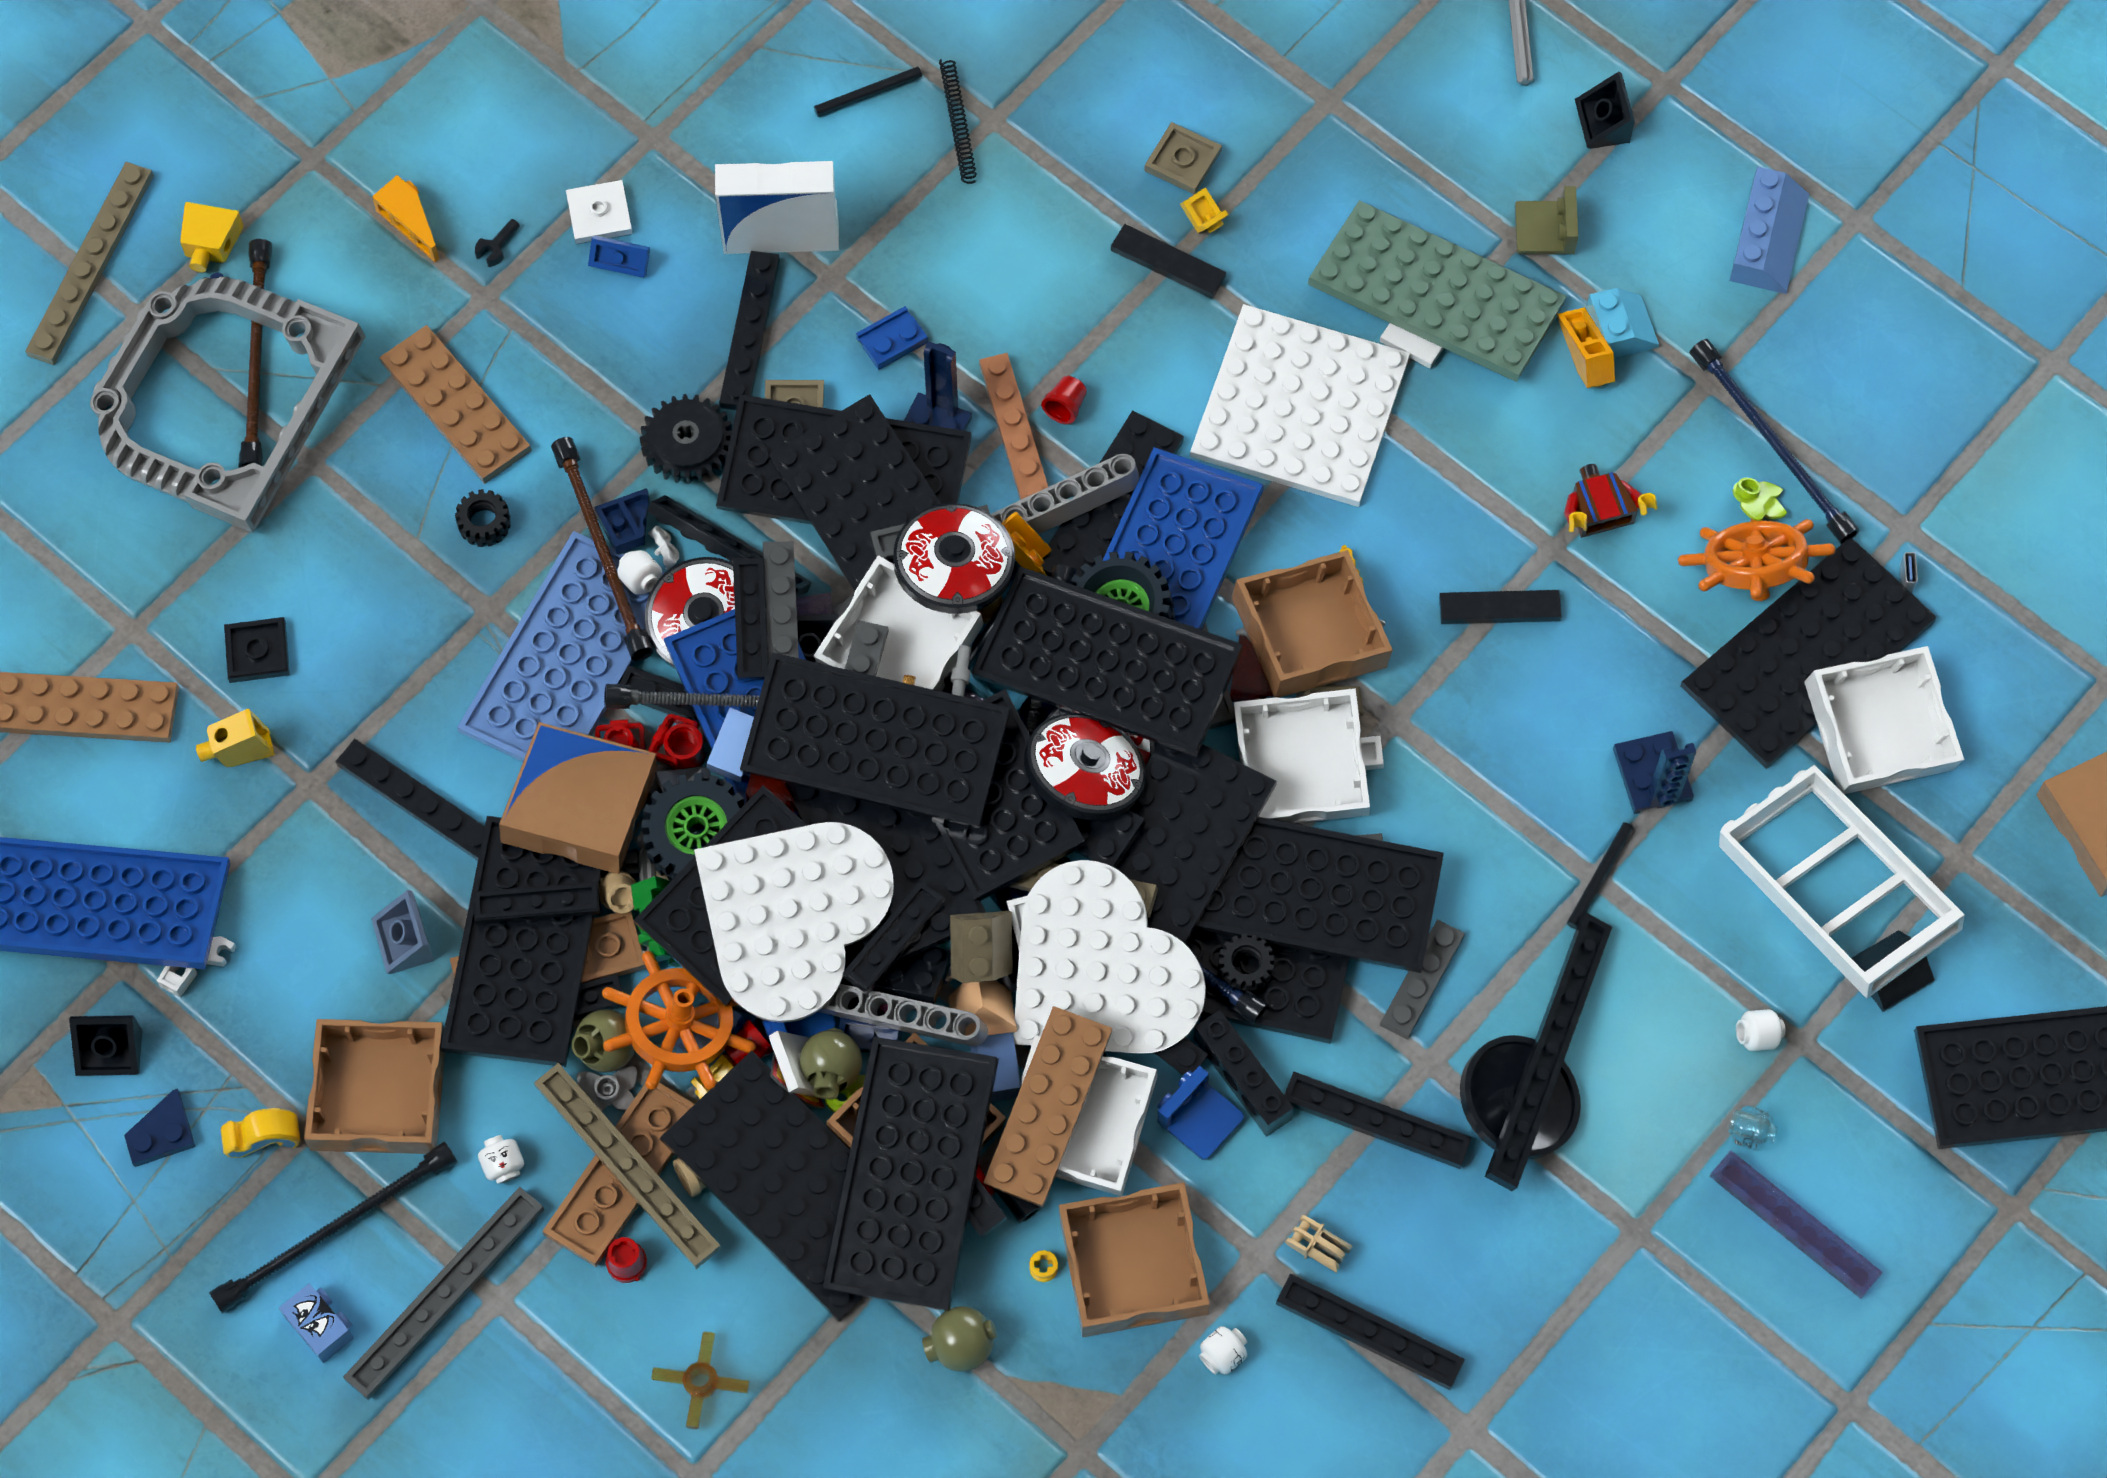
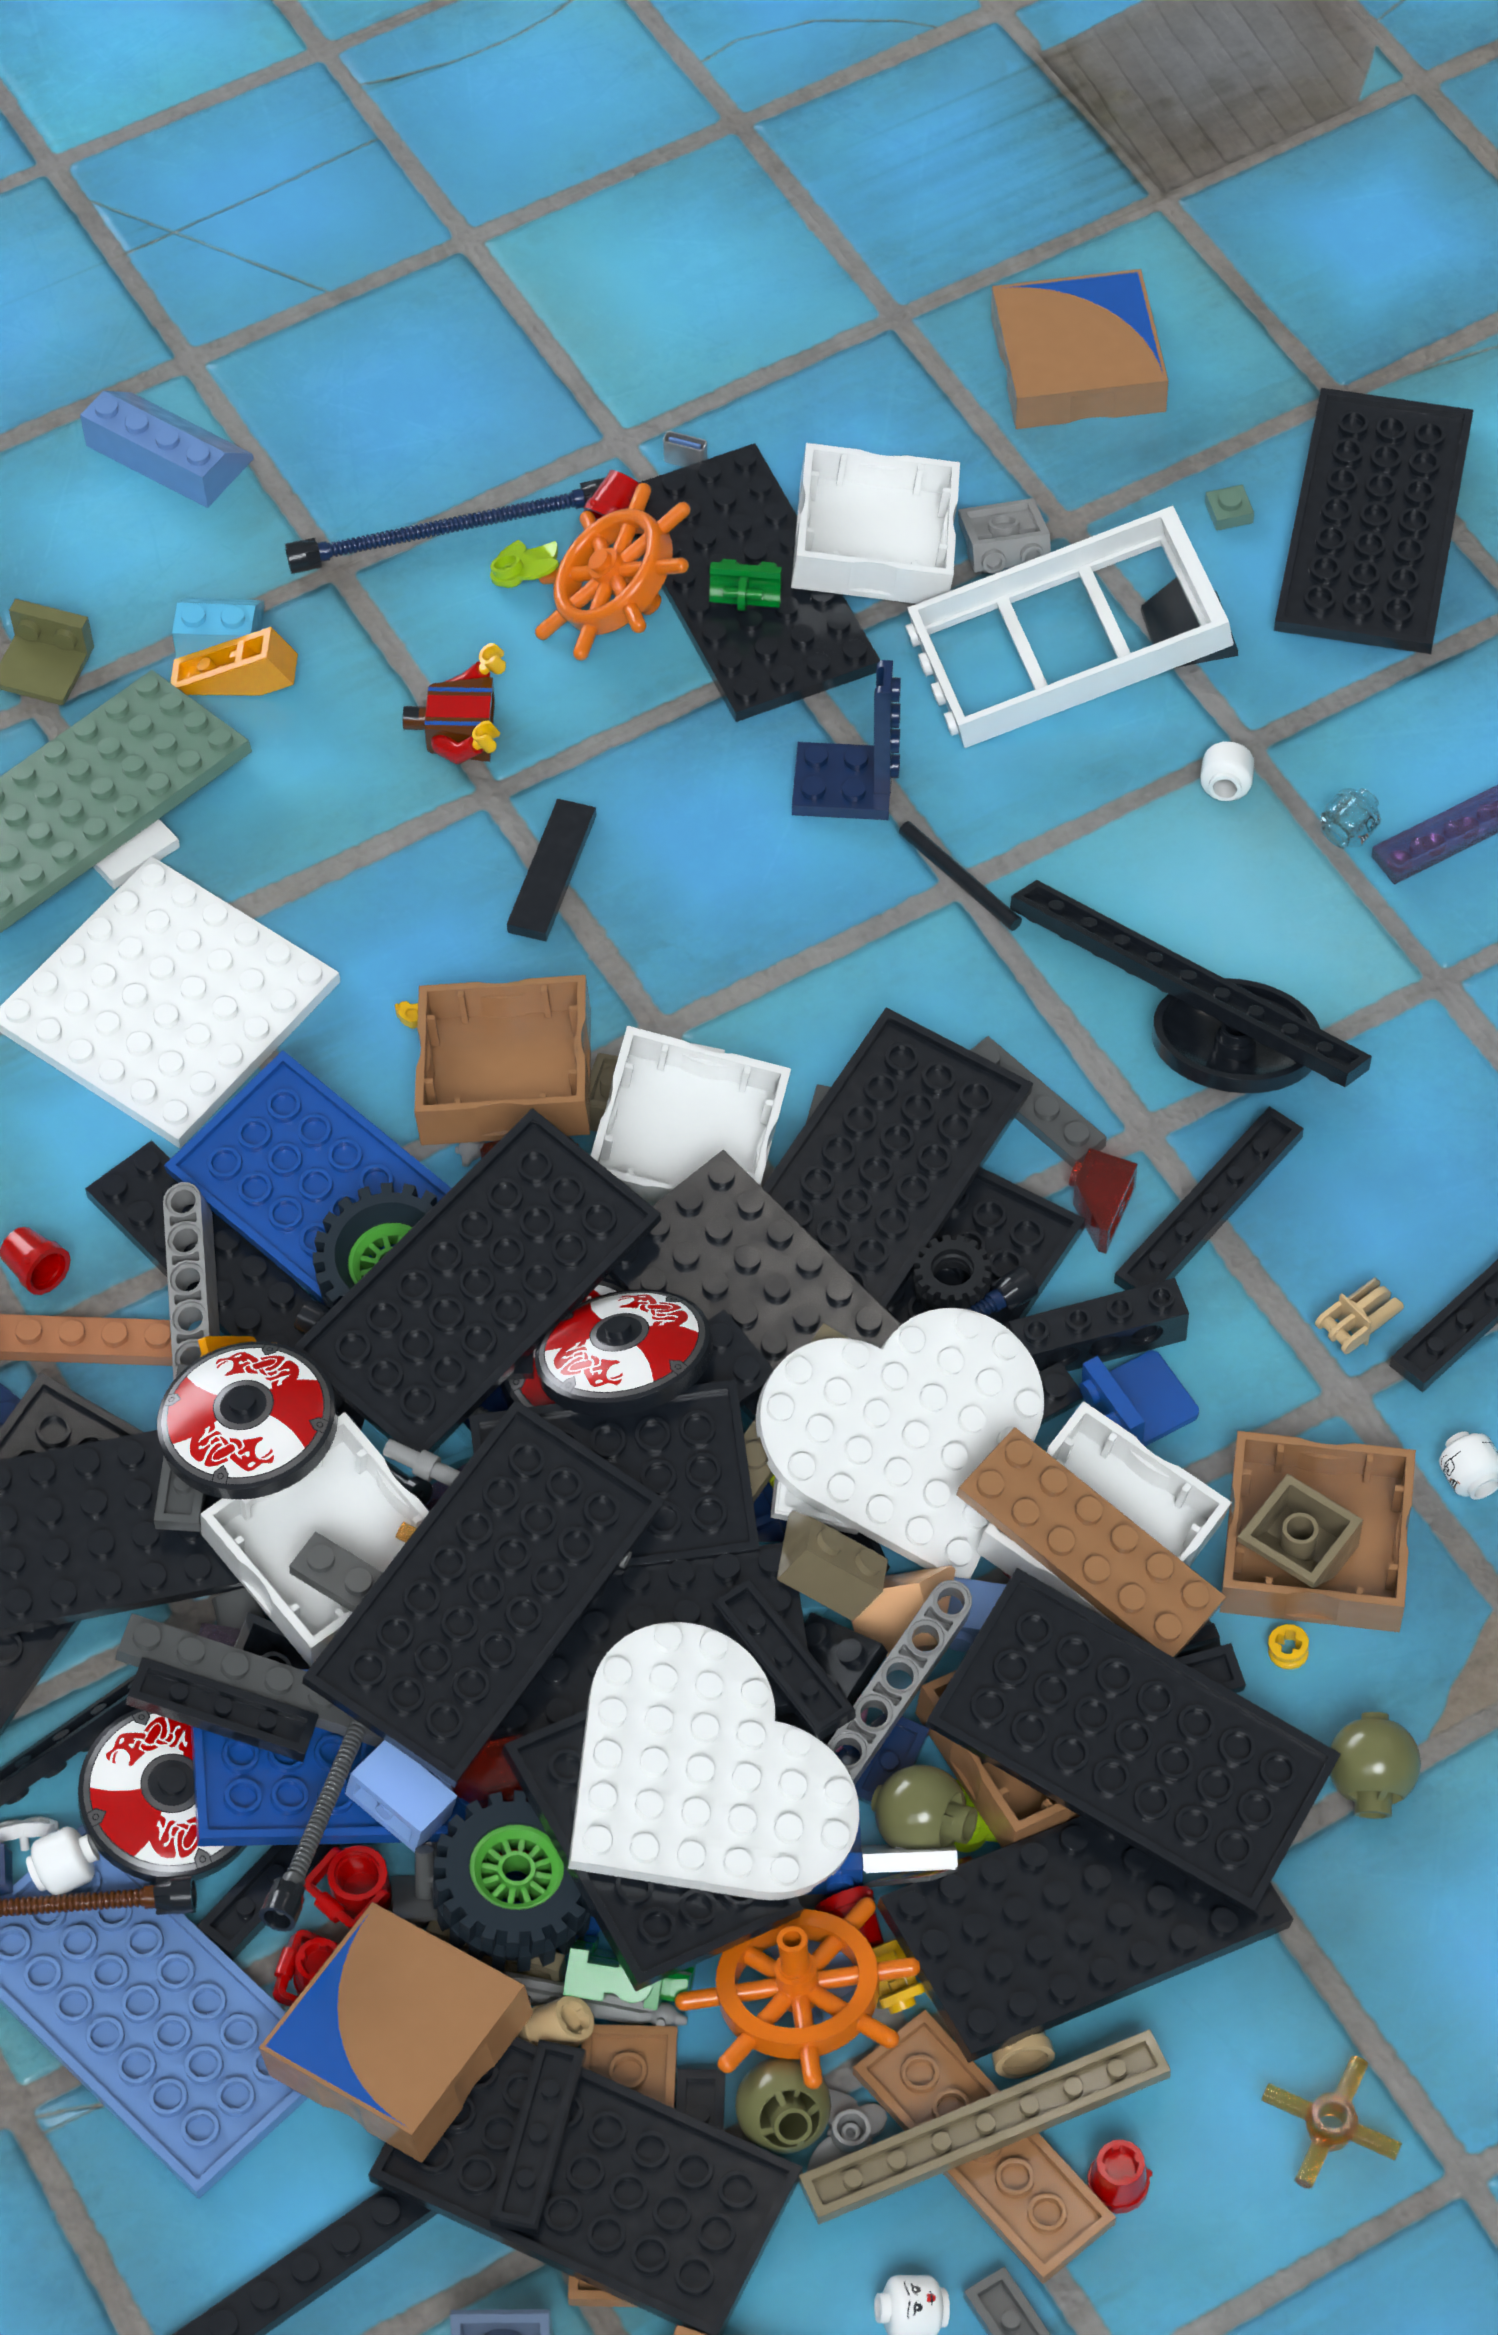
camera: 70 degrees left, 10 degrees down
(1114, 1245) = (1303, 1532): none -> dark tan slope
(1355, 1046) = (1102, 1193): none -> clear red slope
(1786, 650) = (745, 584): none -> green hips
(1836, 533) = (612, 494): none -> red piece
(1919, 814) = (1003, 534): none -> light grey plate
(2020, 967) = (1229, 507): none -> sand green plate

